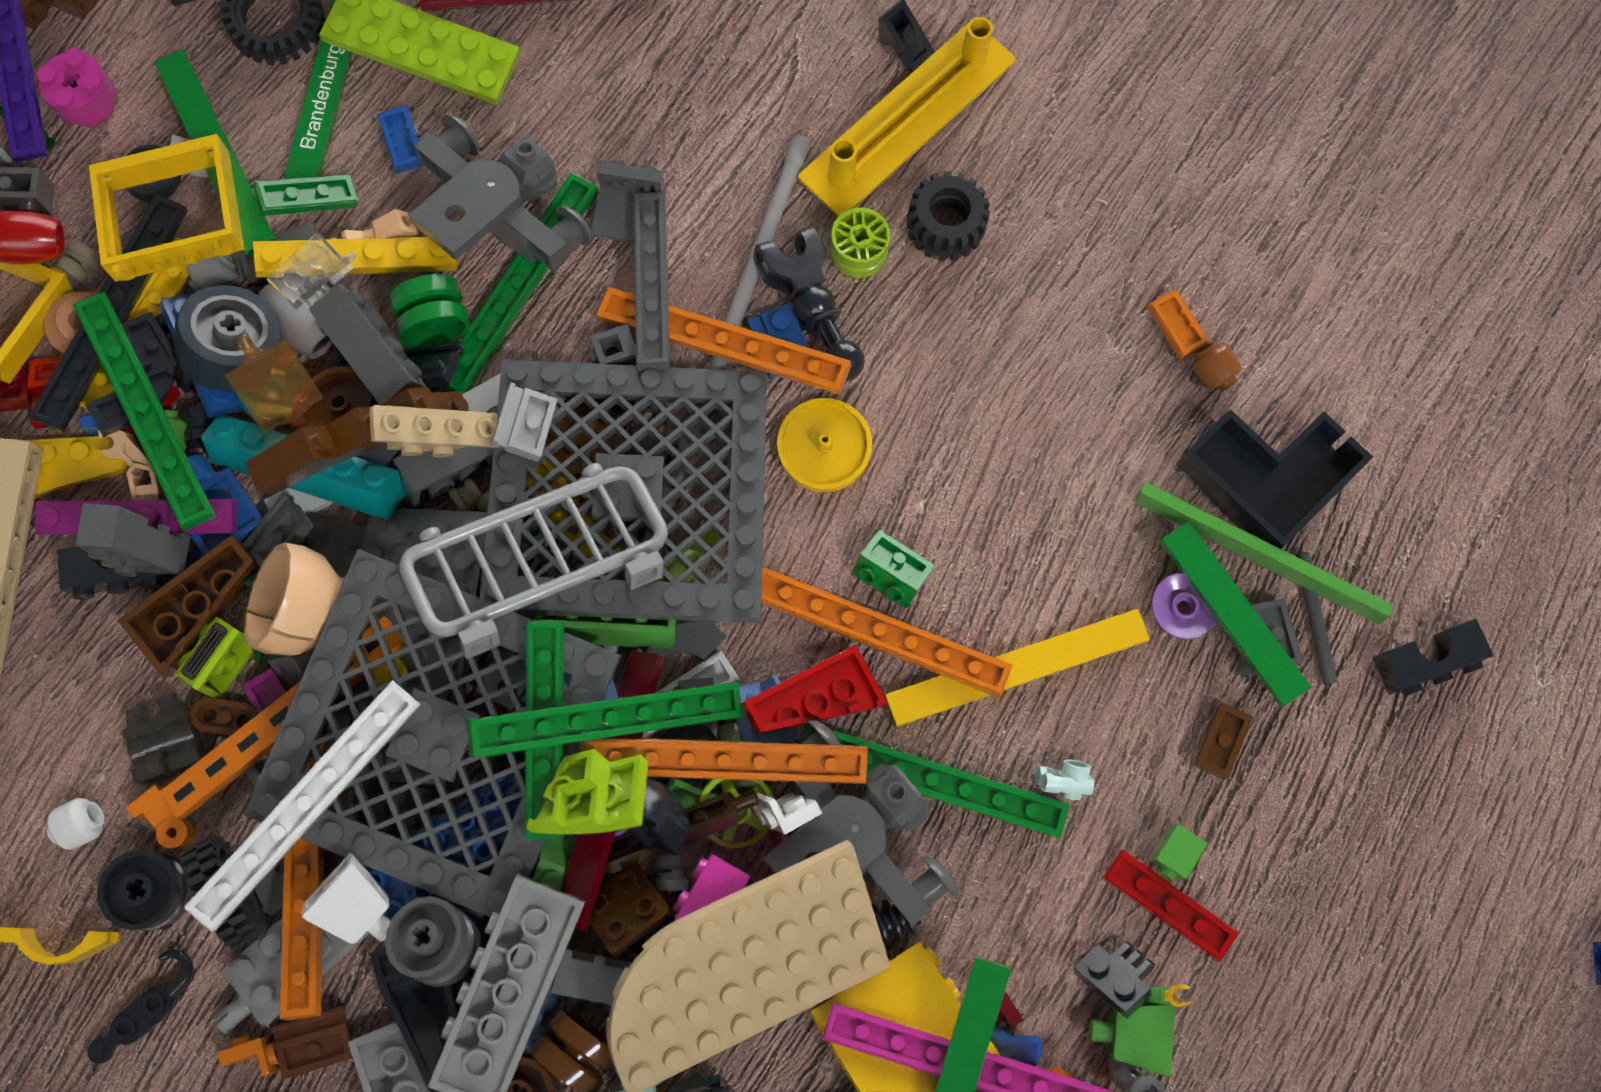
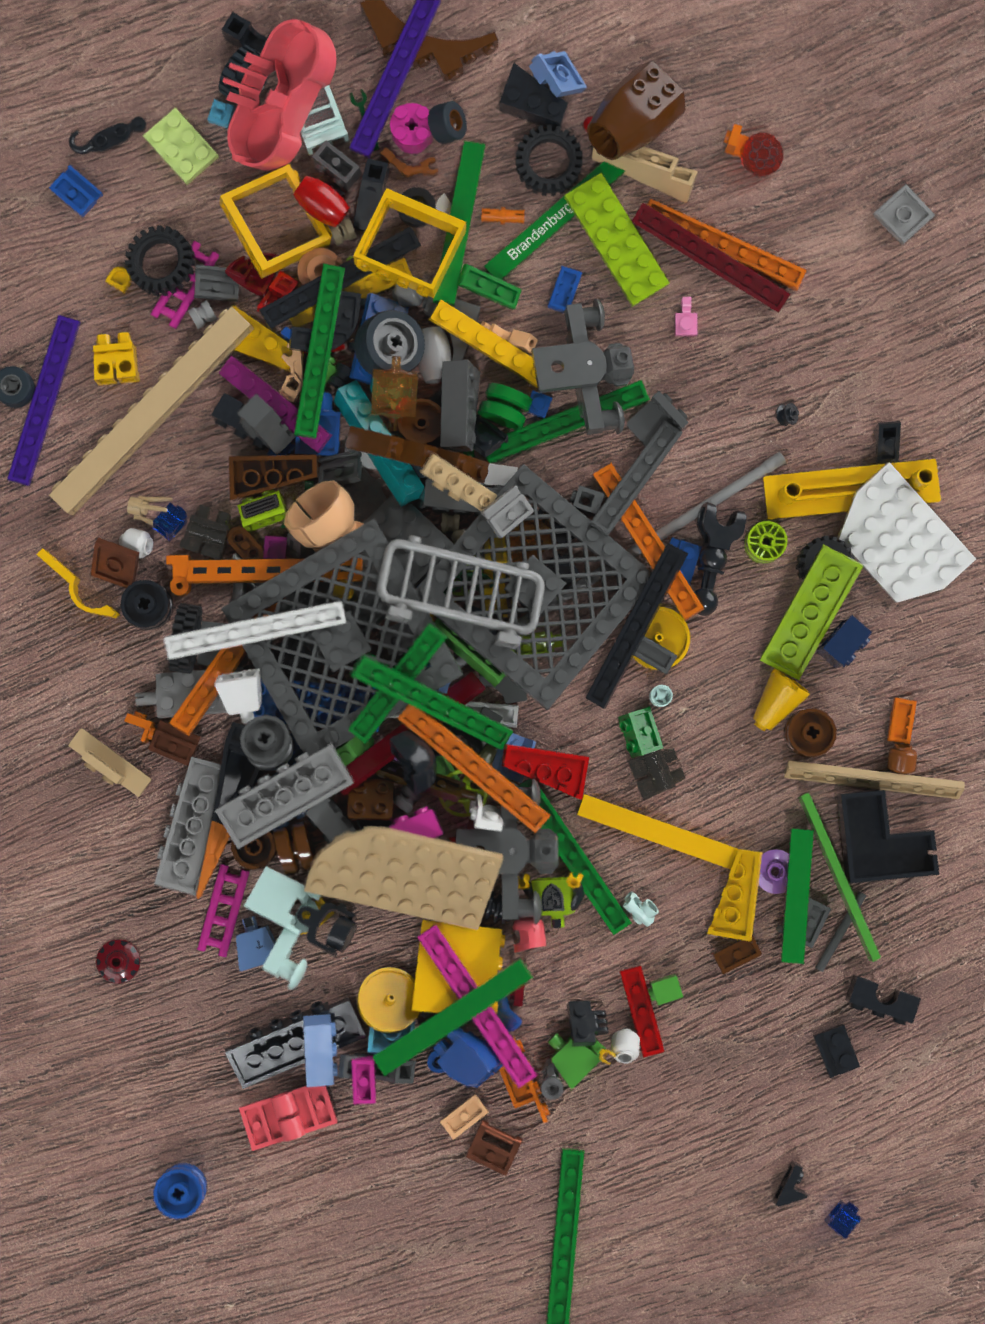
camera: 45 degrees right, 10 degrees up
(49, 772) = (140, 507): none -> tan plant
(60, 869) = (114, 563): none -> copper plate
(72, 179) = (371, 192): none -> black slope
(101, 761) = (170, 522): none -> clear blue brick
(110, 141) = (409, 171): none -> dark orange piece
(115, 51) = (447, 122): none -> black wheel
(143, 1012) = (105, 663): black piece -> none
(264, 111) = (502, 215): none -> orange pin
(309, 270) = (457, 345): clear bracket -> none
(472, 286) = (540, 404): none -> blue plate
(571, 75) = (686, 321): none -> bright pink plate
(593, 795) = (396, 736): lime slope -> none
(770, 87) = (787, 414): none -> black wheel
(787, 445) = (636, 625): none -> black tile
(833, 464) = (655, 655): none -> dark grey tile
(883, 500) = (660, 695): none -> light aqua wheel
(884, 633) = (608, 762): orange tile -> none
(950, 597) = (658, 774): none -> clear smoke hips
(955, 840) = (558, 895): none -> torso
(965, 911) = (530, 934): none -> coral helmet
(977, 275) = (811, 612): none -> lime plate
(1008, 126) = (901, 538): none -> white plate
(1022, 405) = (778, 700): none -> yellow cone
(1042, 282) = (844, 642): none -> dark blue brick
(1089, 414) = (823, 734): none -> reddish brown wheel
(1175, 680) = (738, 902): none -> yellow wing
(1188, 964) = (625, 1045): none -> white head
(1203, 413) = (874, 779): none -> tan tile
(1433, 763) = (836, 1051): none -> black plate
(1527, 986) = (787, 1192): none -> black slope

